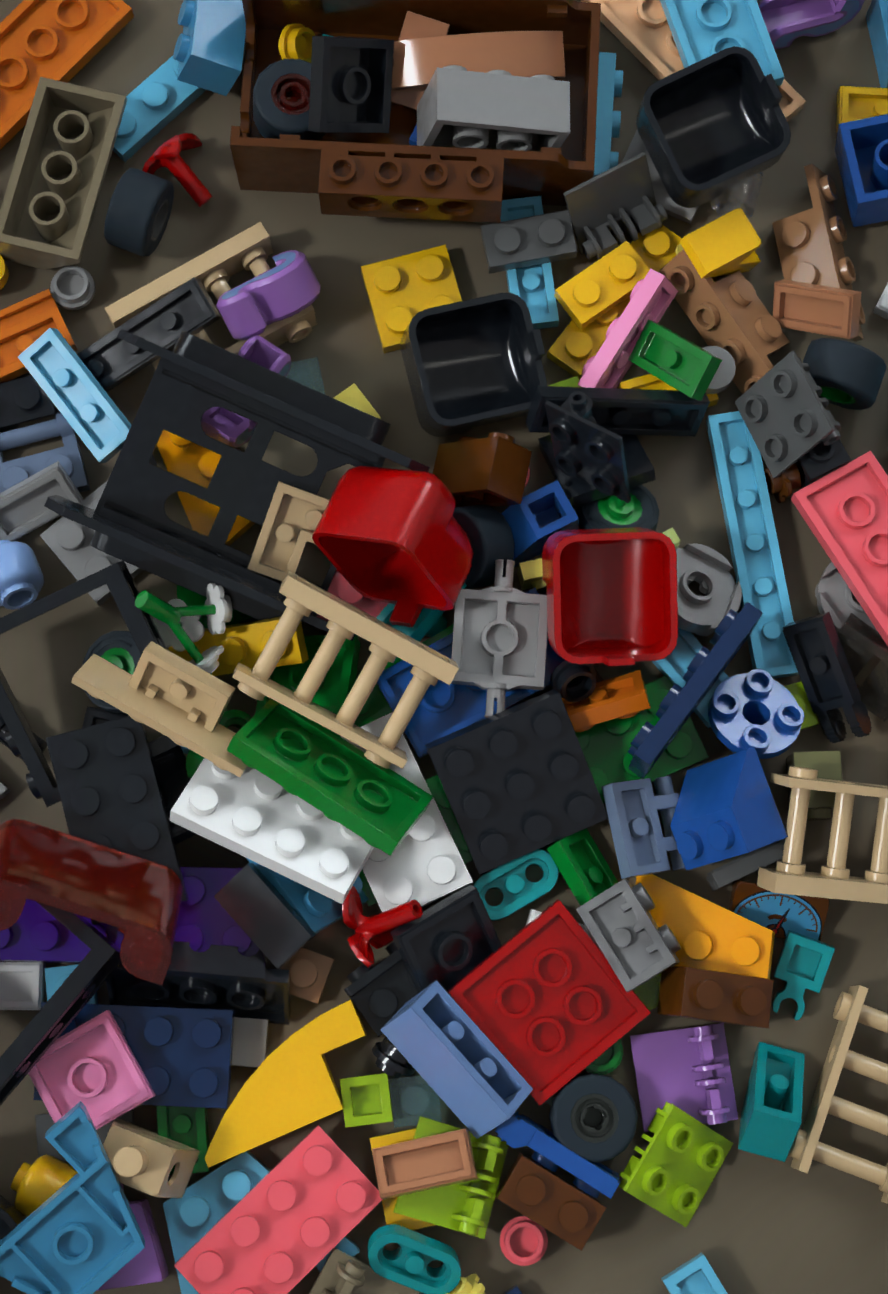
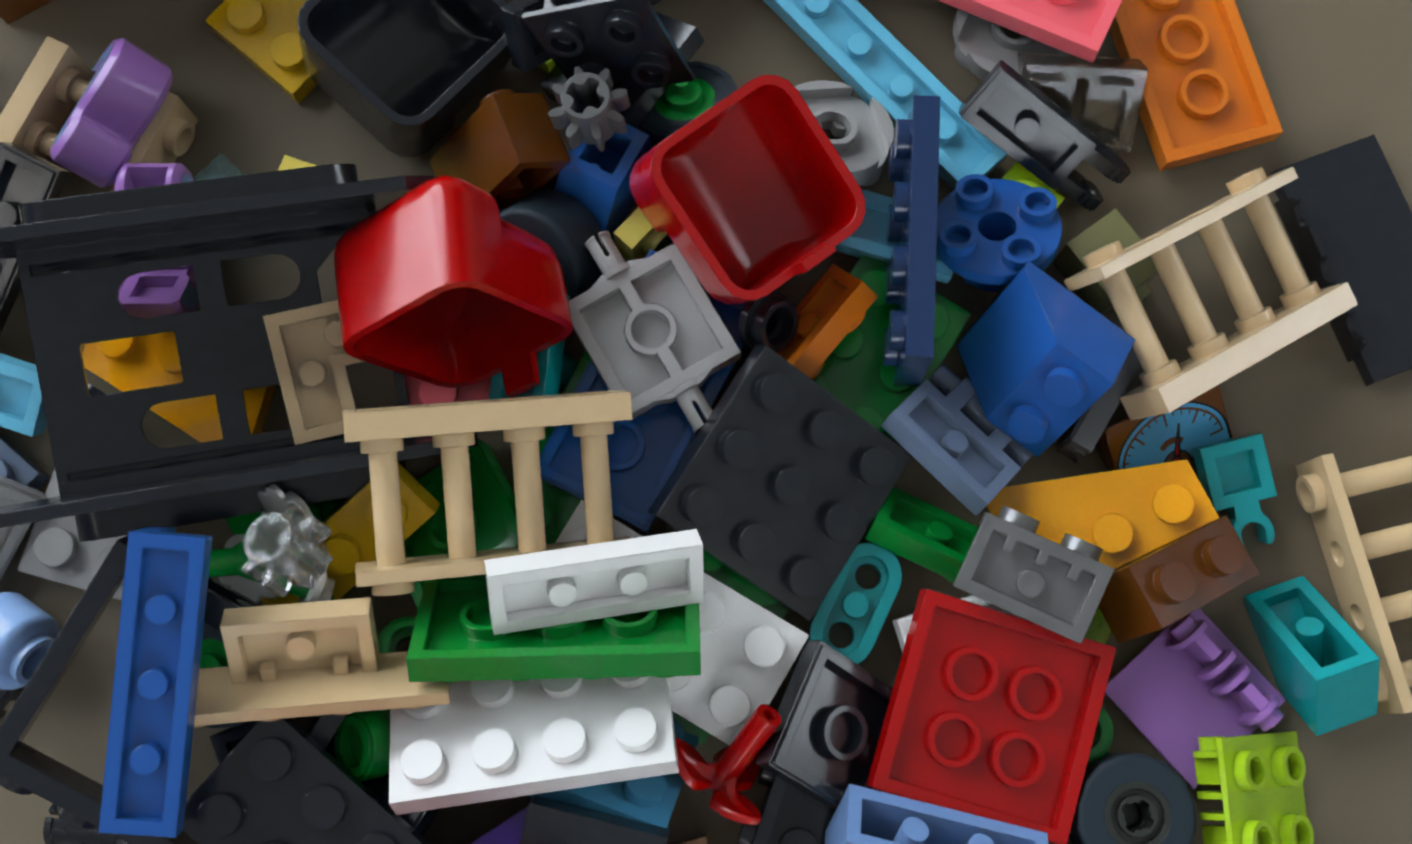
camera: 35 degrees left, 0 degrees up
(91, 657) = (155, 683): none -> blue fence
(175, 769) = (364, 744): none -> green tile
(206, 629) = (286, 549): none -> clear gear
(367, 764) = (595, 581): none -> white plate
(557, 471) = (584, 93): none -> dark grey gear

